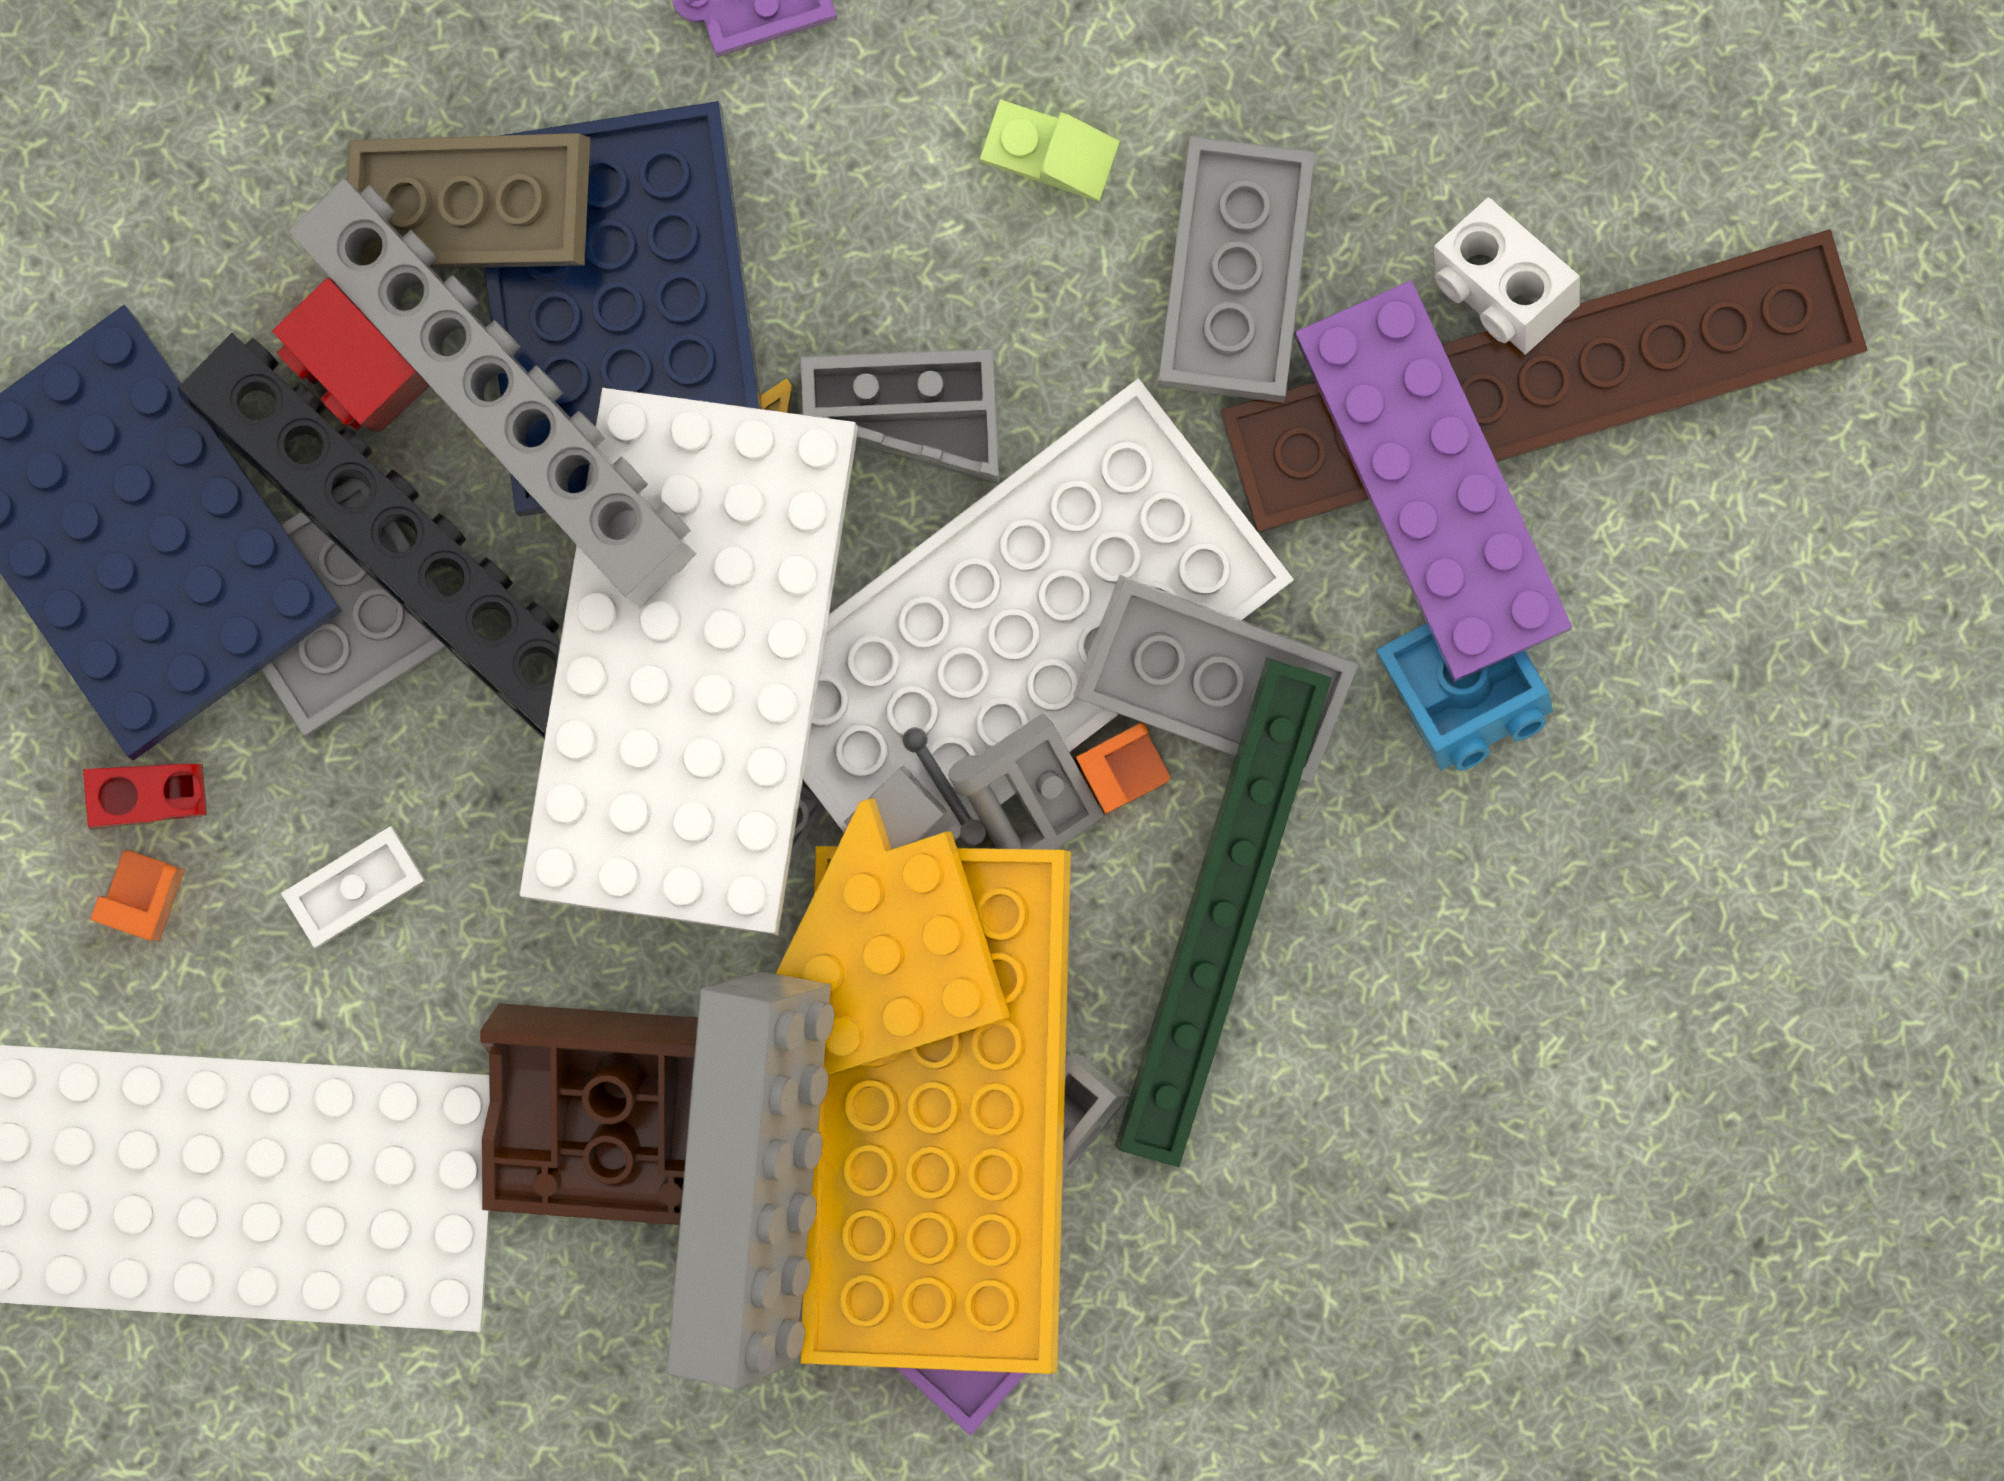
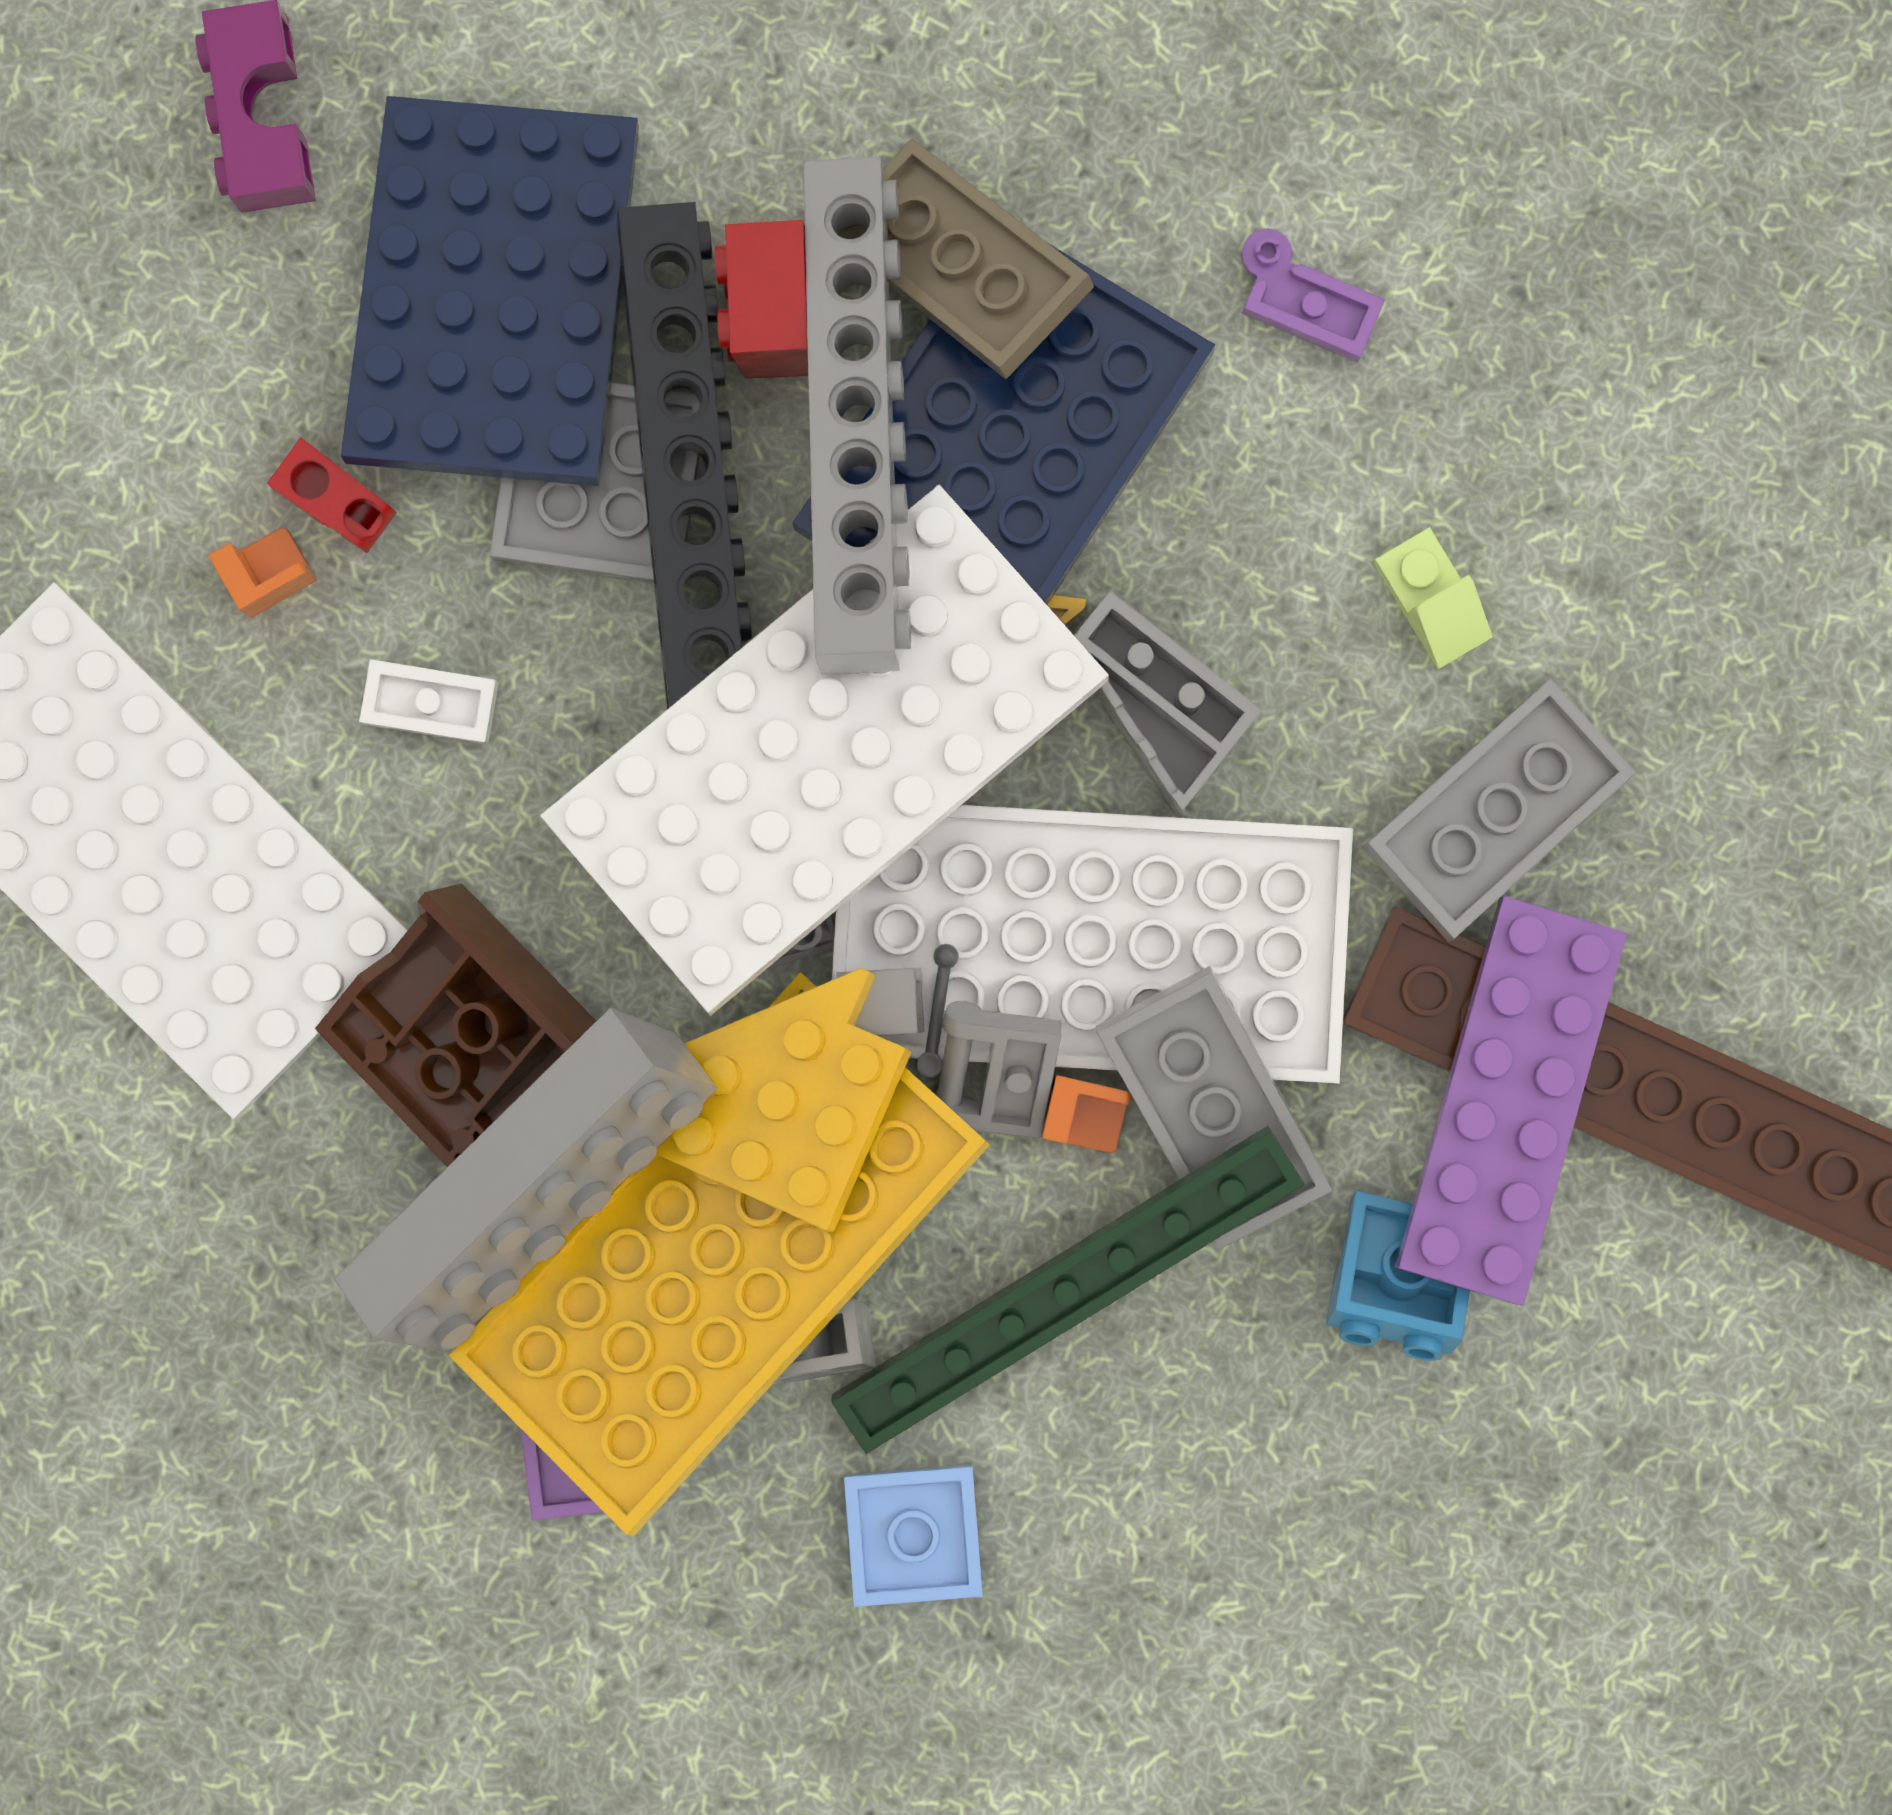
camera: 45 degrees right, 0 degrees up
(1267, 1197) = (913, 1535): none -> light blue plate
(1517, 268) = (1717, 993): white brick -> none

